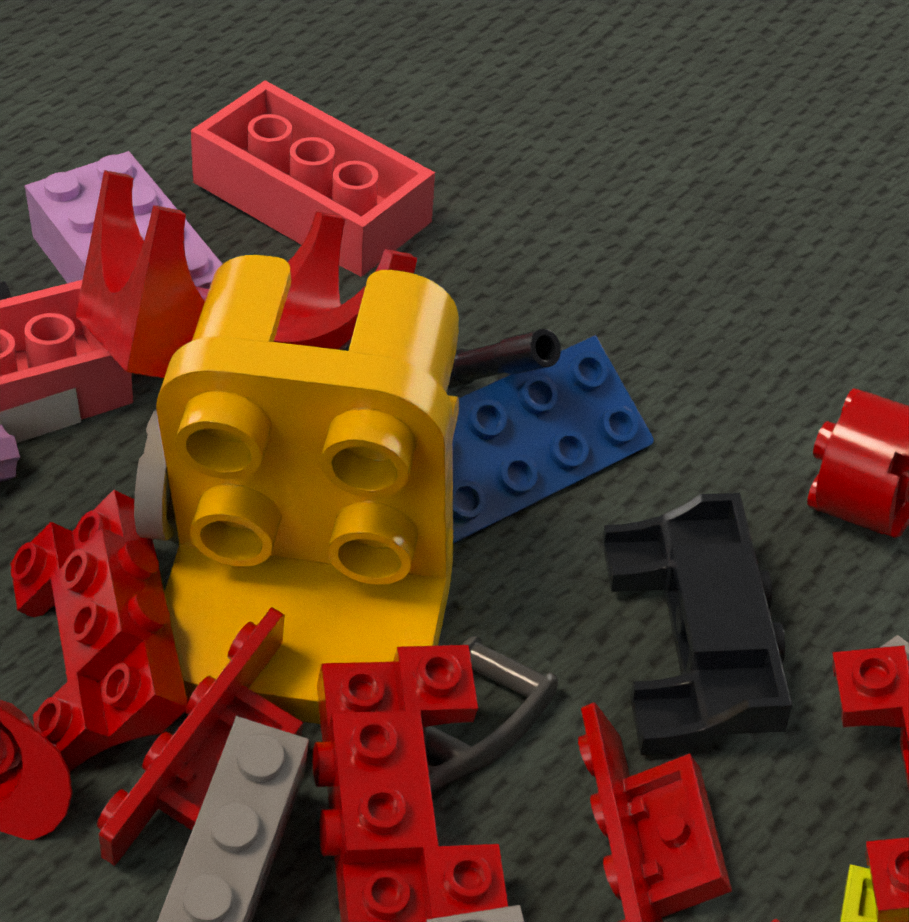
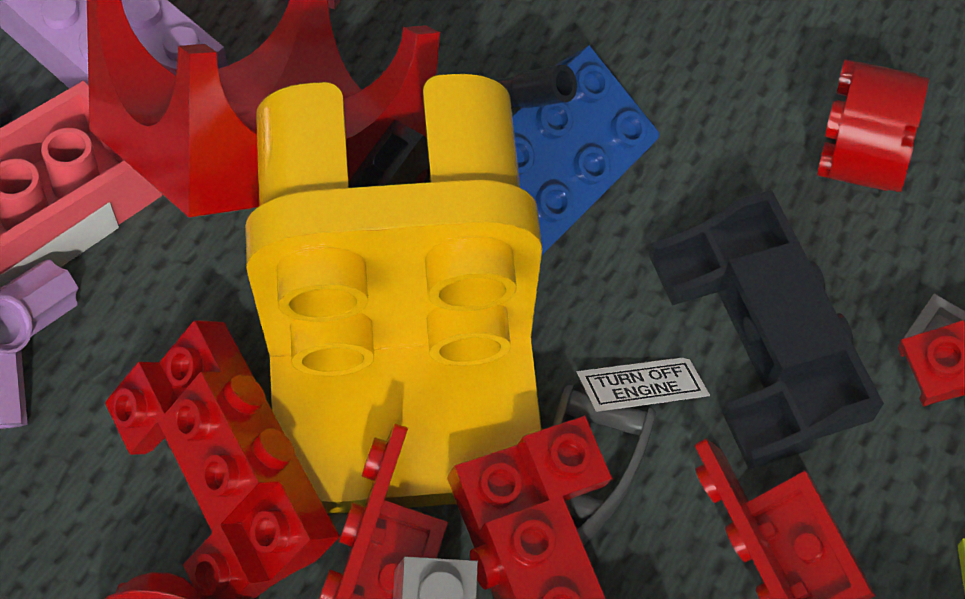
camera: 15 degrees left, 15 degrees up
(153, 498) = (242, 310): light grey piece -> none
(553, 653) = (642, 384): none -> white sticker

